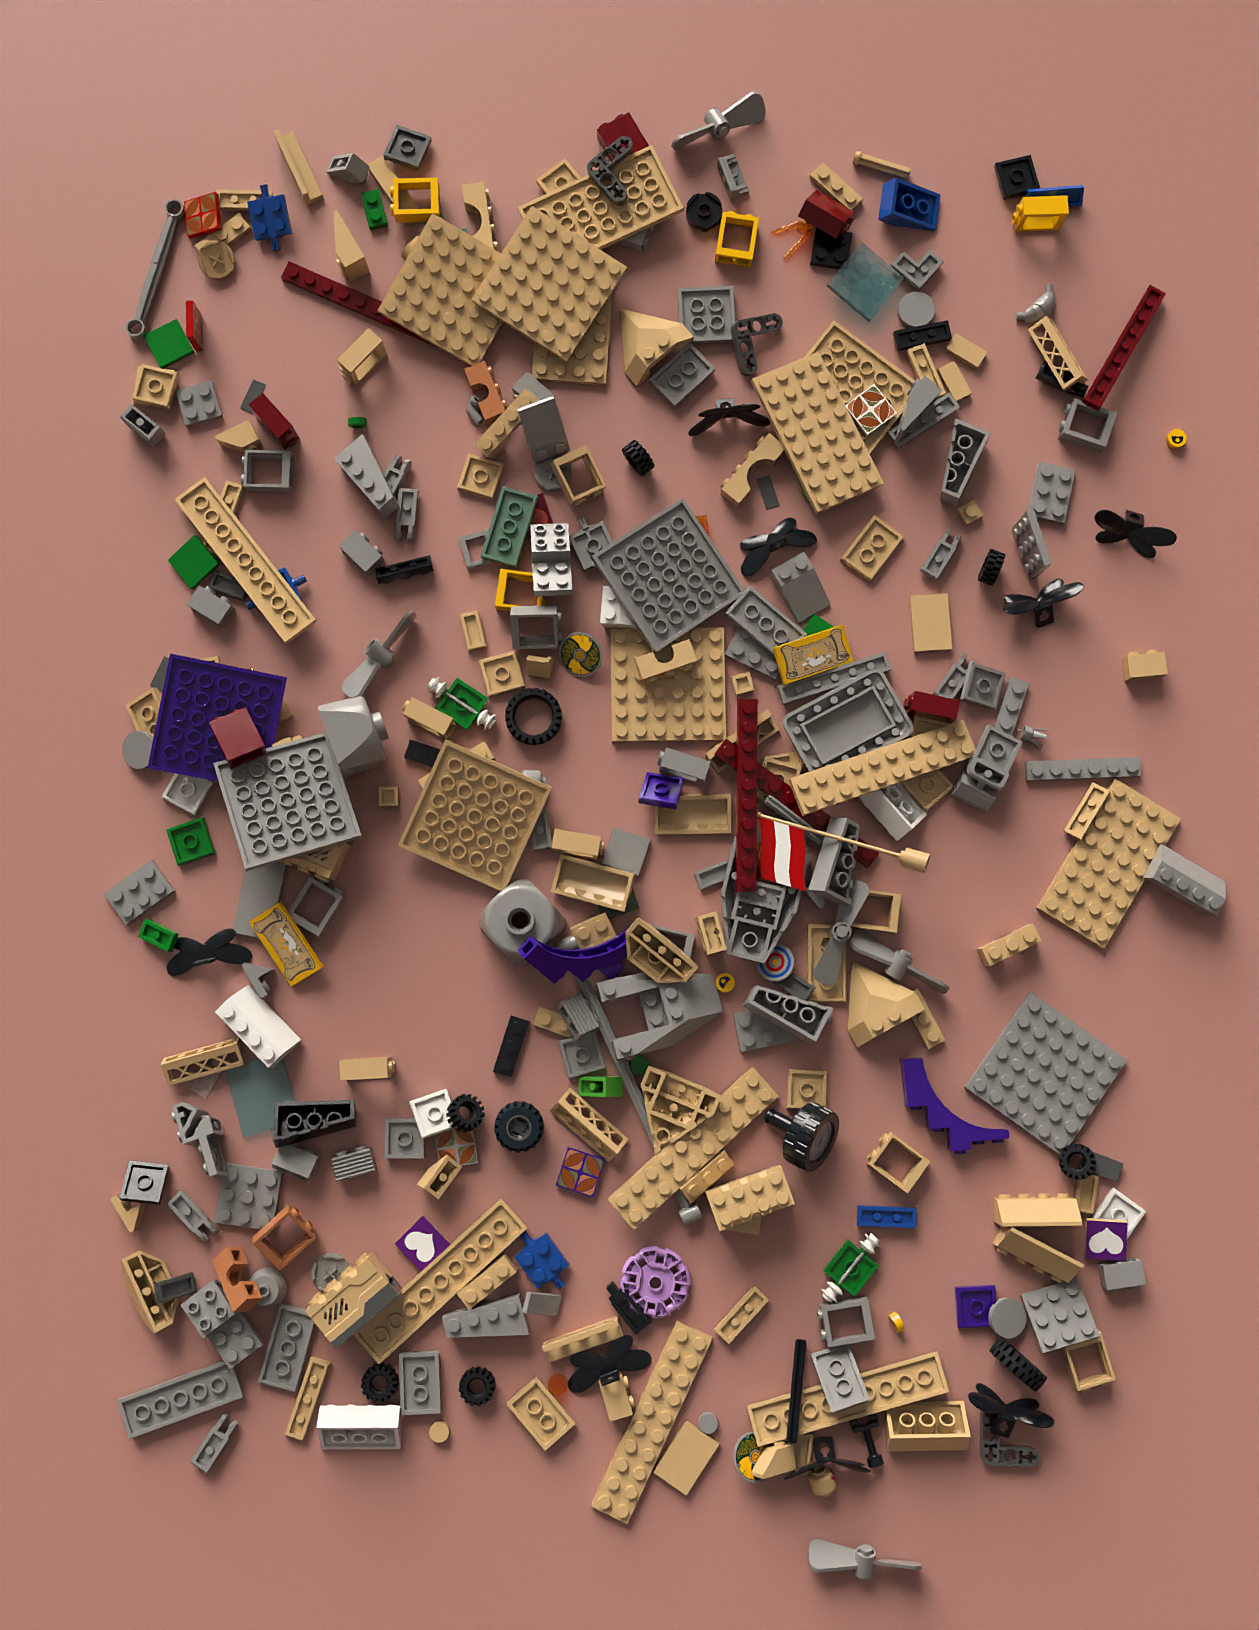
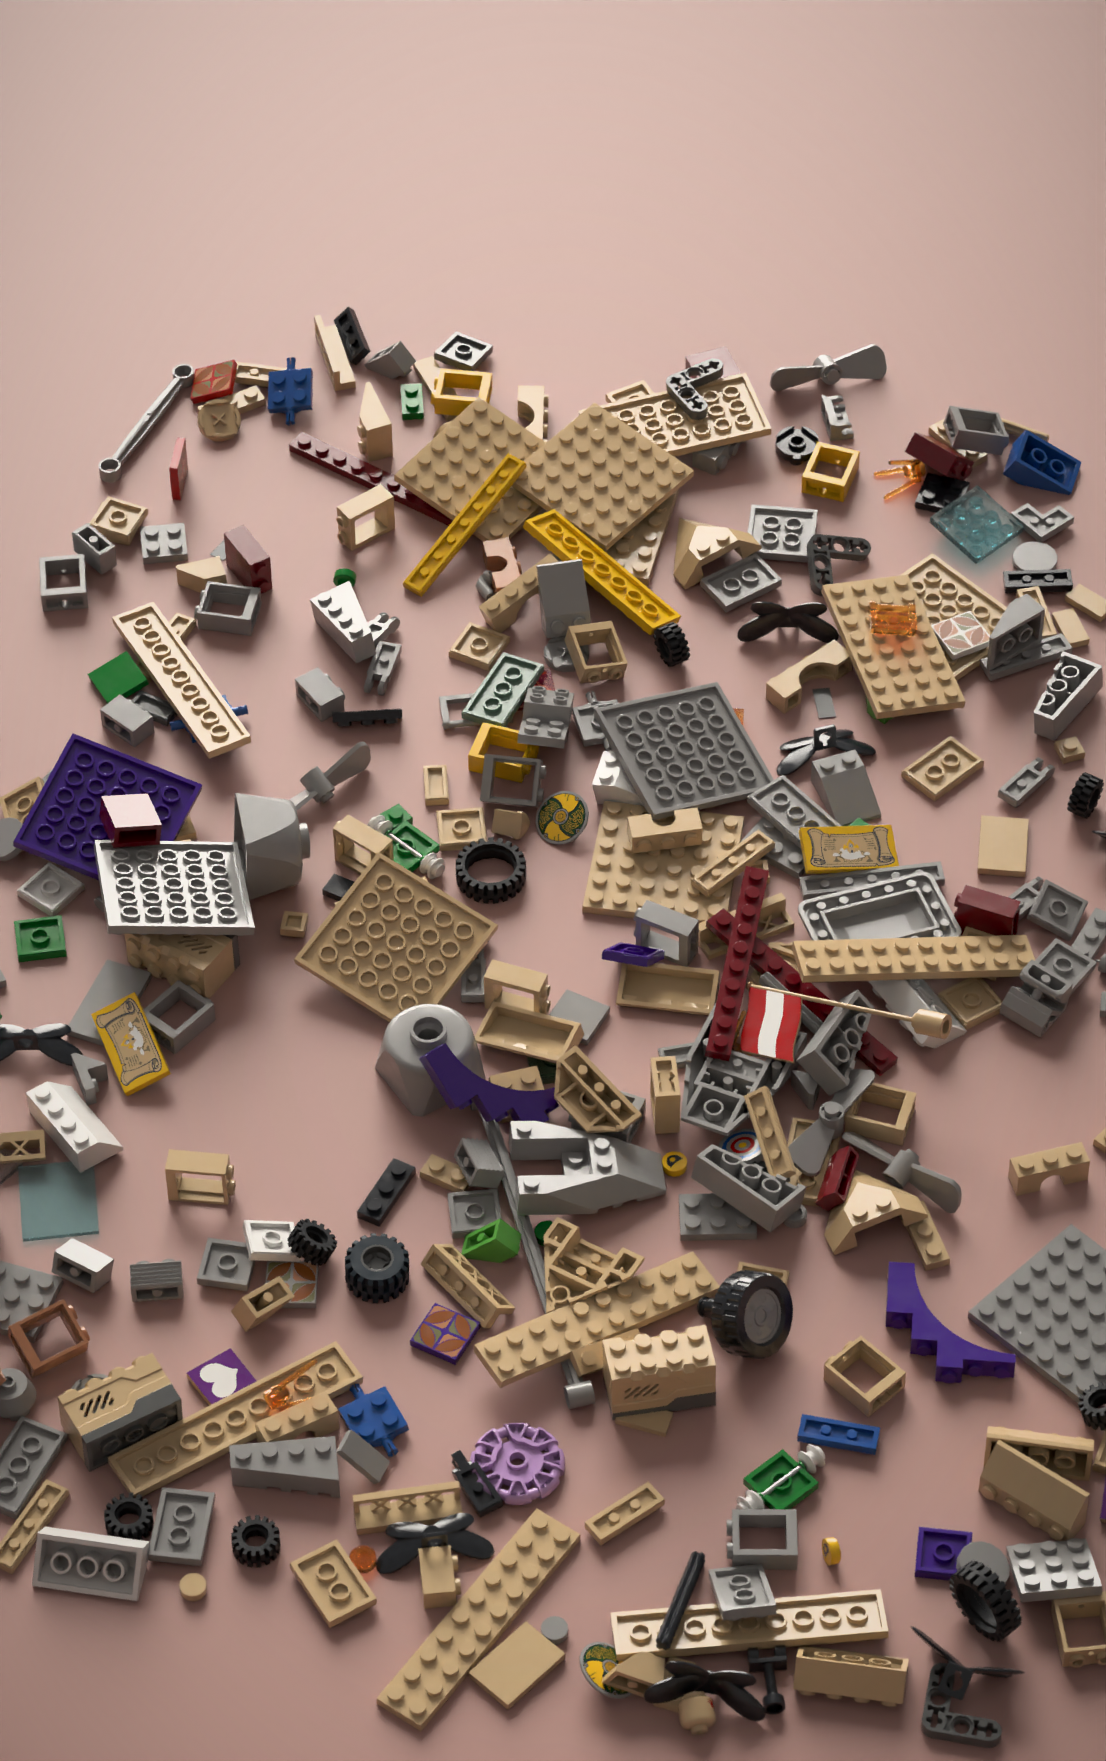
camera: 15 degrees right, 35 degrees down
(129, 481) = (53, 598): none -> light grey window
(169, 344) = (144, 487): green tile -> none
(309, 142) = (352, 336): none -> black plate
(311, 1119) = (117, 1218): black wedge -> none
(446, 353) = (464, 525): none -> yellow tile
(448, 671) = (397, 816): none -> green plate
(468, 1263) = (278, 1394): none -> clear orange plant
(567, 388) = (602, 571): none -> yellow plate
(724, 682) = (732, 863): none -> tan tile
(797, 962) = (769, 1133): none -> tan tile
(818, 415) = (892, 619): none -> clear orange plate
(837, 185) = (975, 430): none -> light grey window
(852, 985) = (837, 1178): none -> dark red piece

